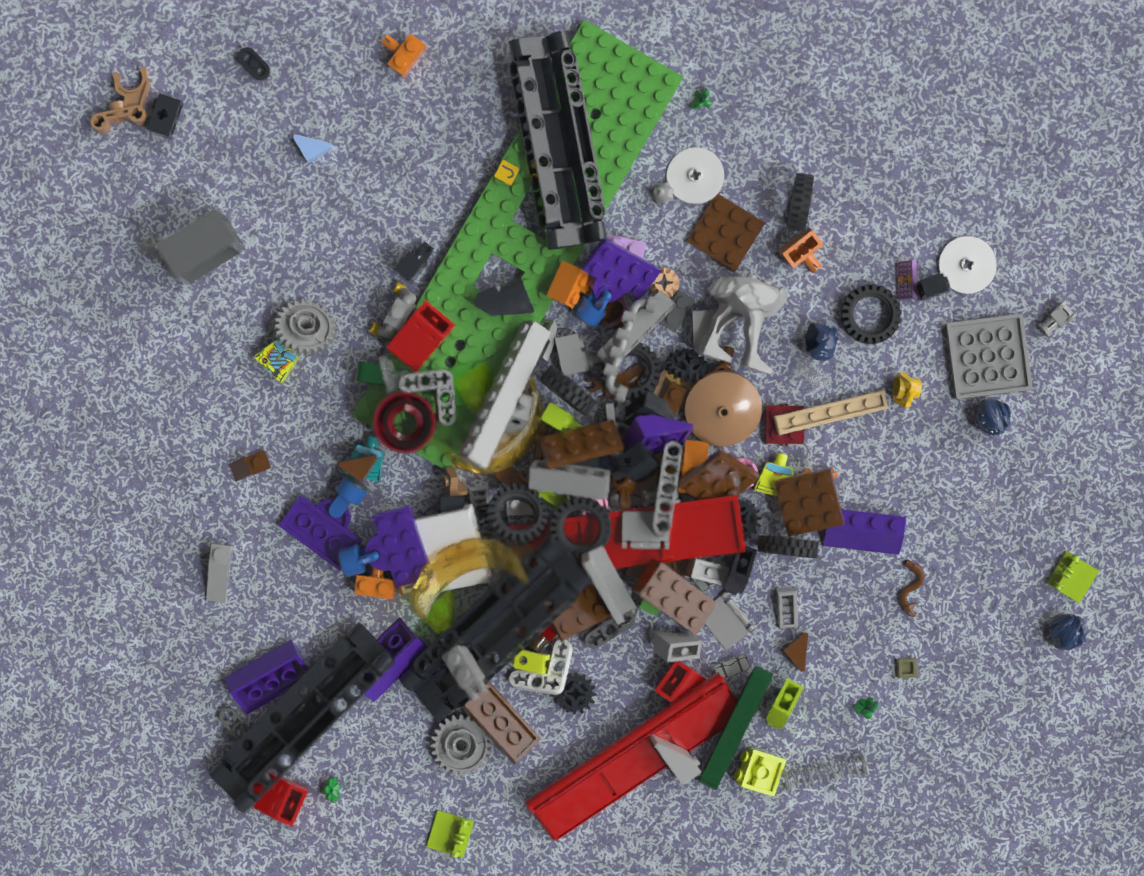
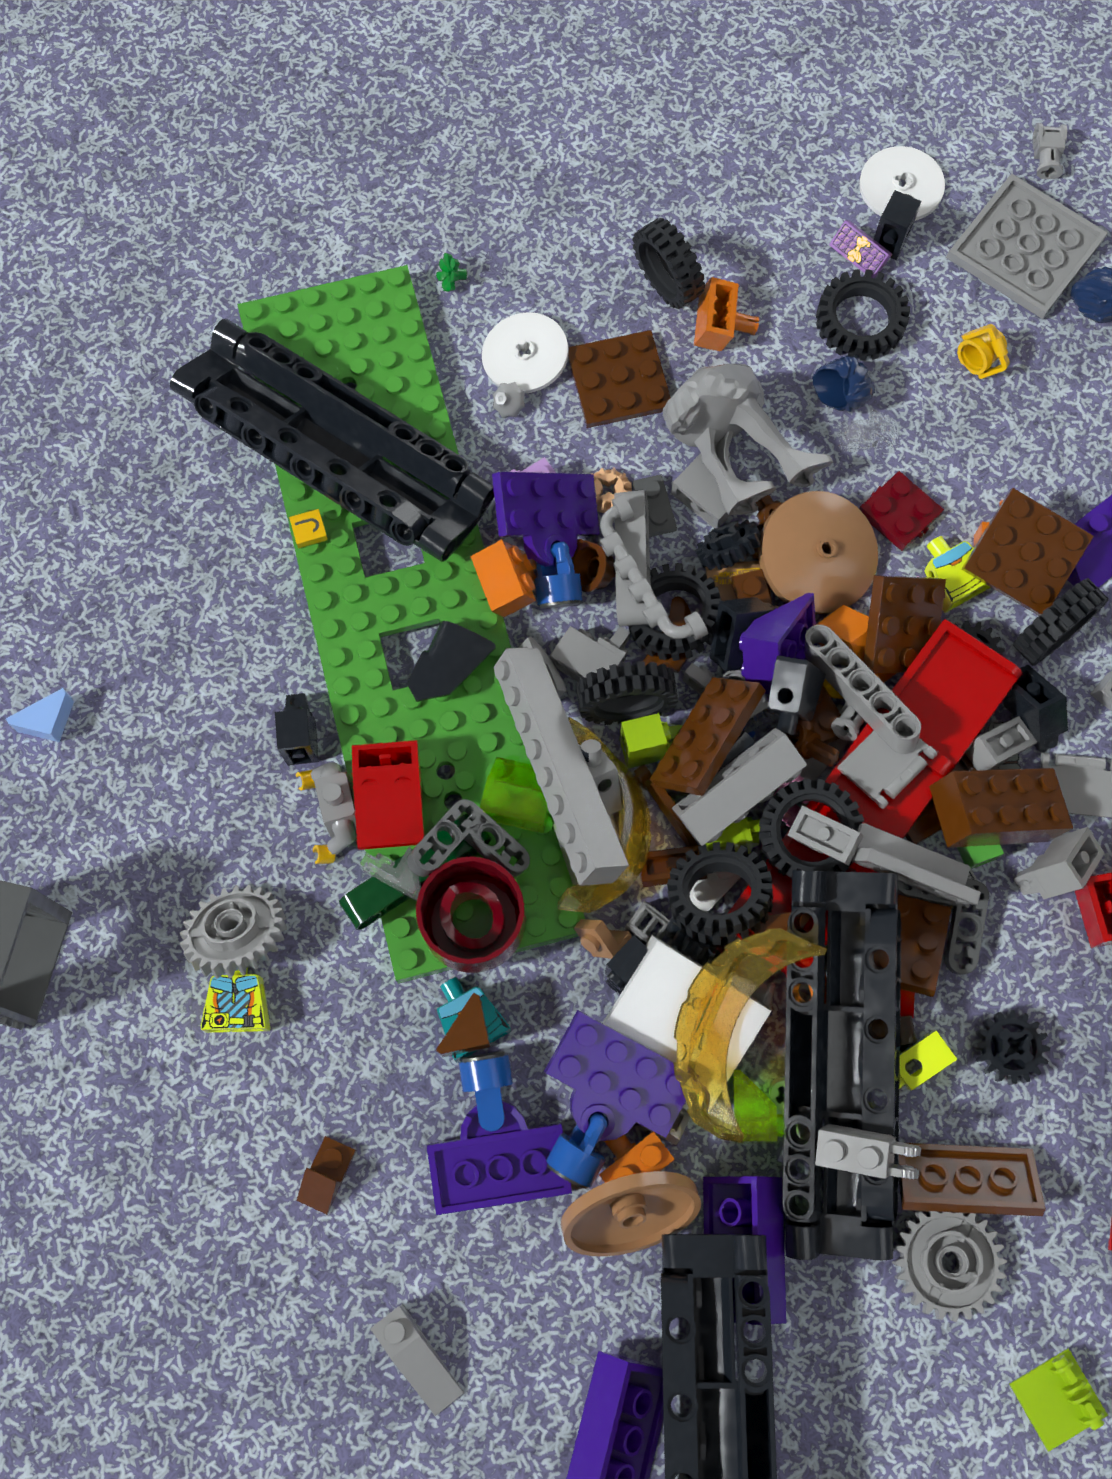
camera: 45 degrees left, 15 degrees down
(352, 602) = (630, 1213): none -> medium nougat dish
(405, 54) = (63, 517): orange brick -> none
(551, 676) = (965, 1054): white beam -> none
(582, 535) = (825, 835): none -> light grey plate
(830, 412) = (934, 450): tan tile -> none

